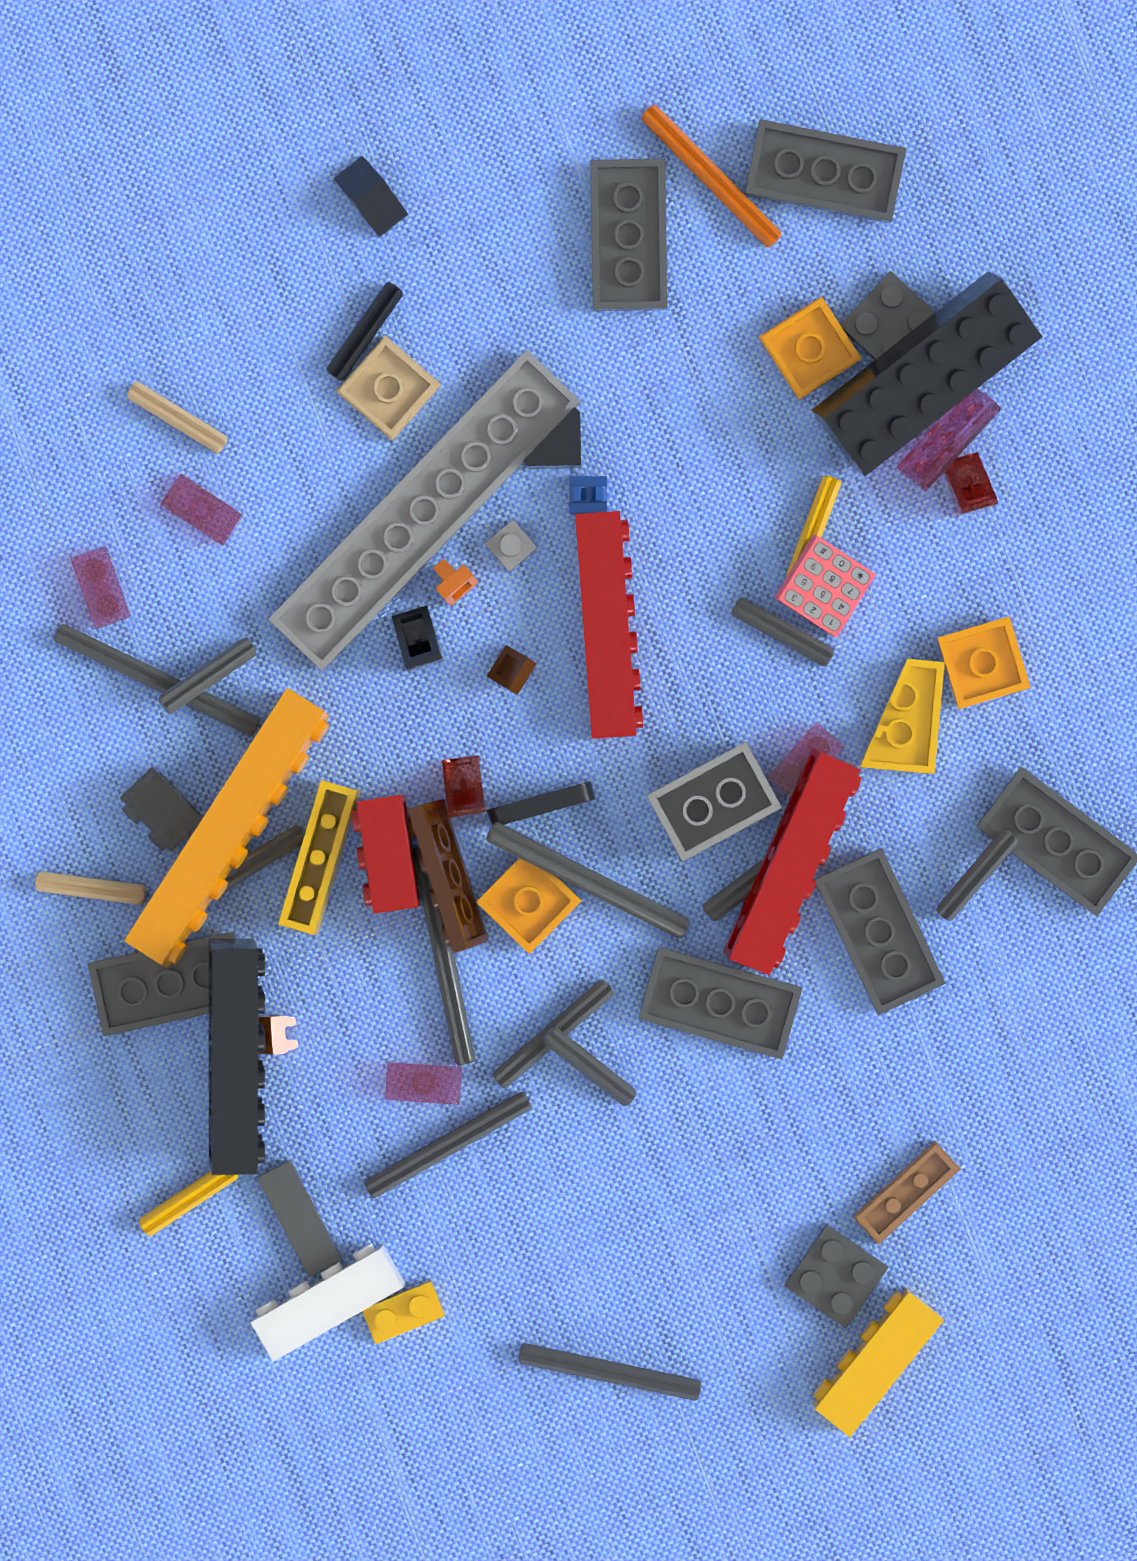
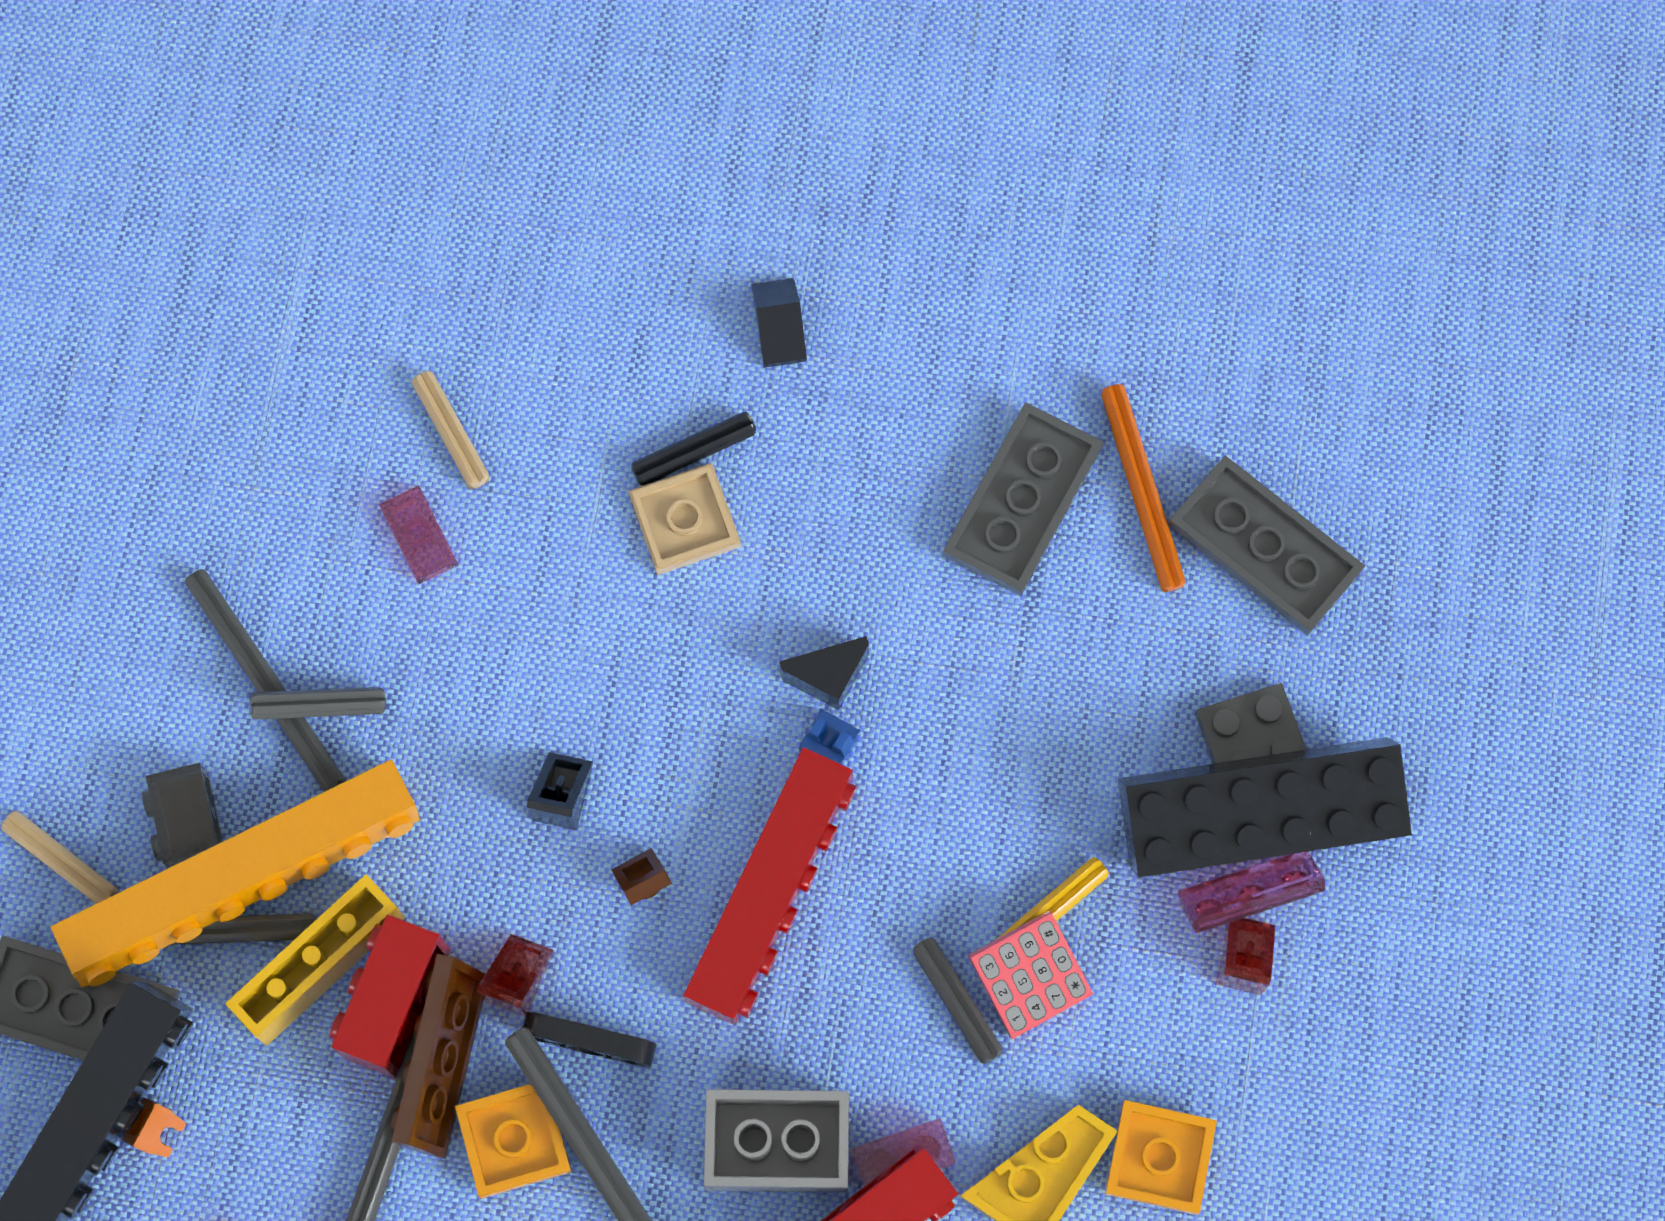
camera: 30 degrees right, 15 degrees down
(100, 587) = (265, 555): clear pink plate -> none
(424, 510) = (642, 661): light grey plate -> none
(454, 583) = (635, 751): orange tile -> none
(511, 545) = (717, 748): light grey plate -> none
(810, 348) = (1151, 716): light orange plate -> none

